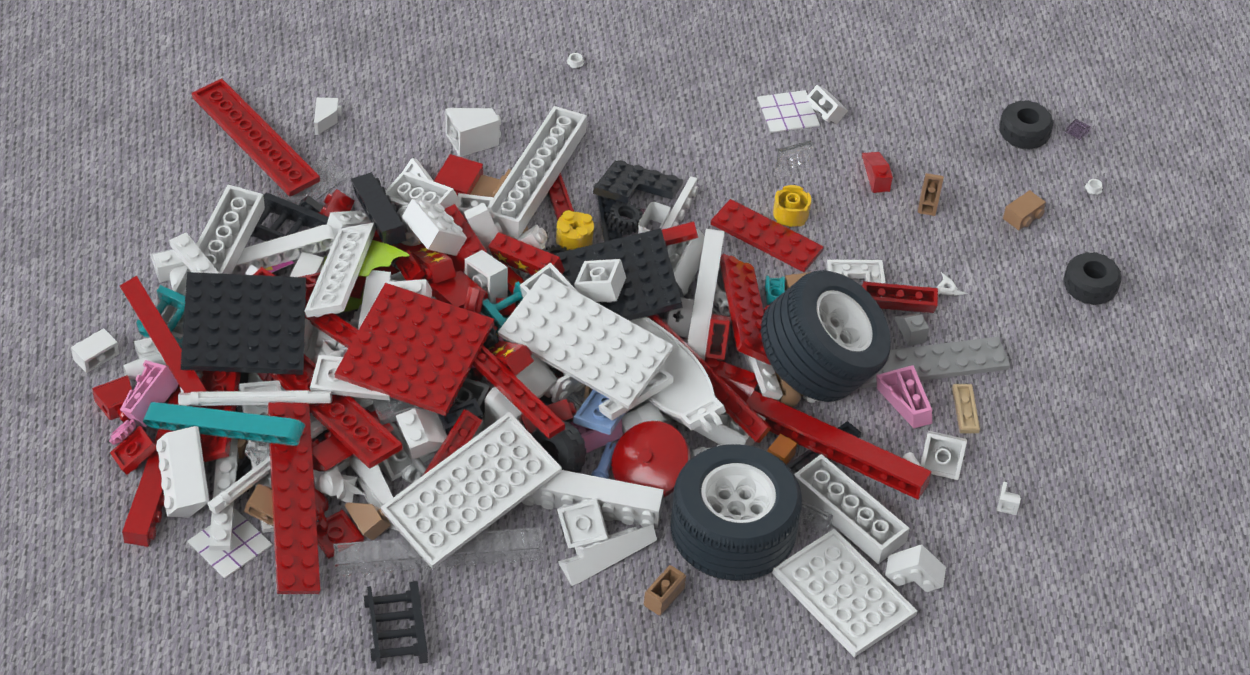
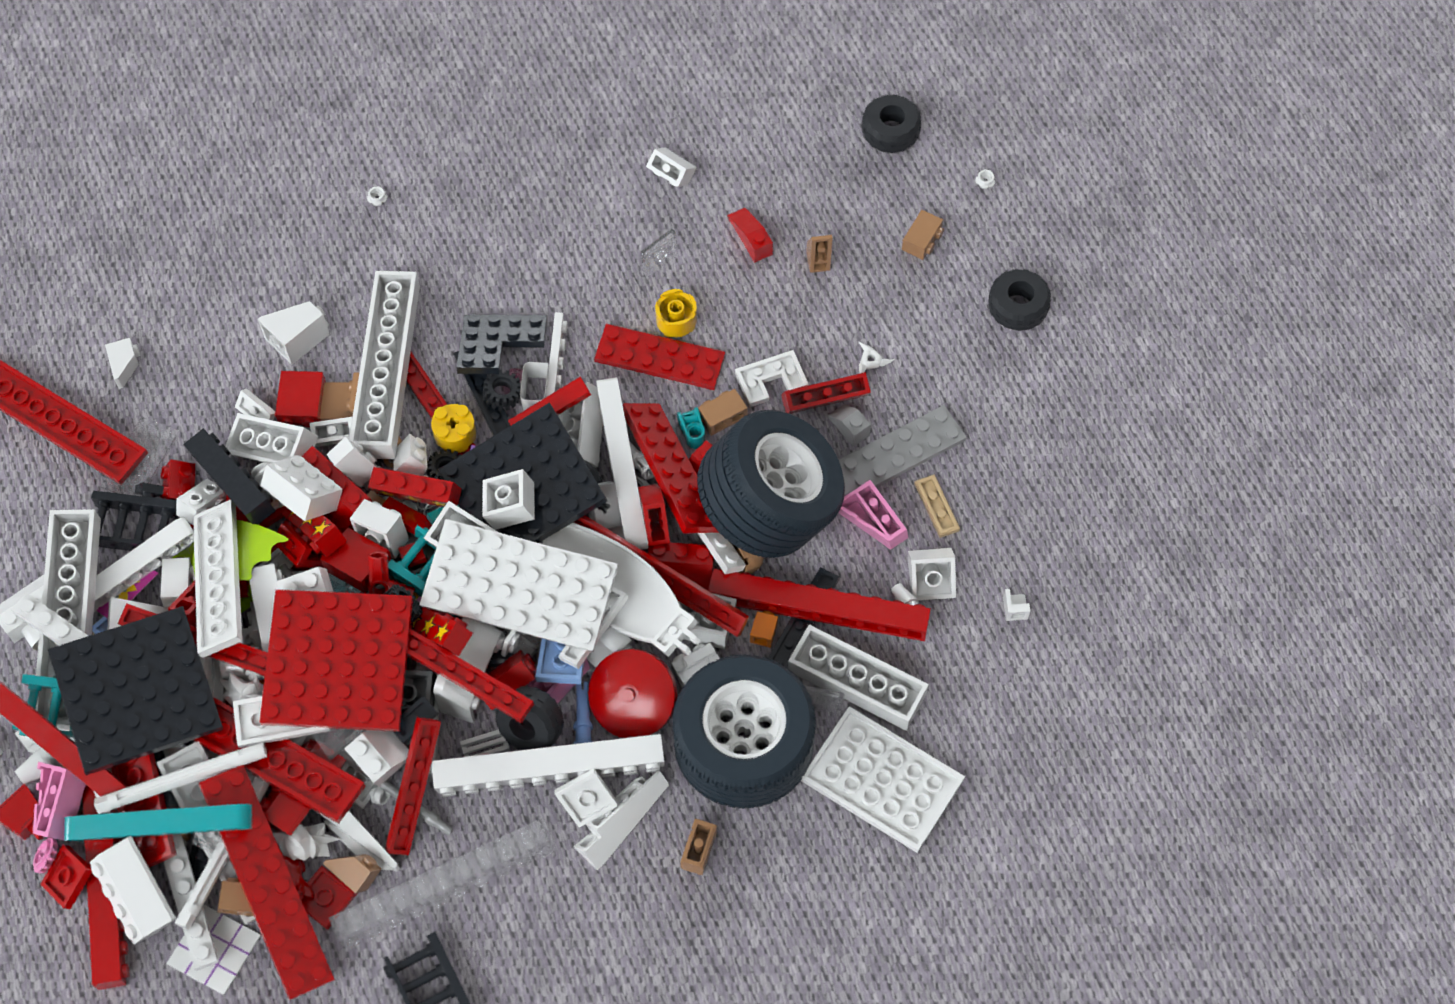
camera: 15 degrees left, 15 degrees up
(470, 489) = (455, 806): white plate -> none
(788, 111) = (630, 186): white piece -> none
(916, 565) = (948, 727): white brick -> none
(1078, 129) = (946, 108): clear purple tile -> none

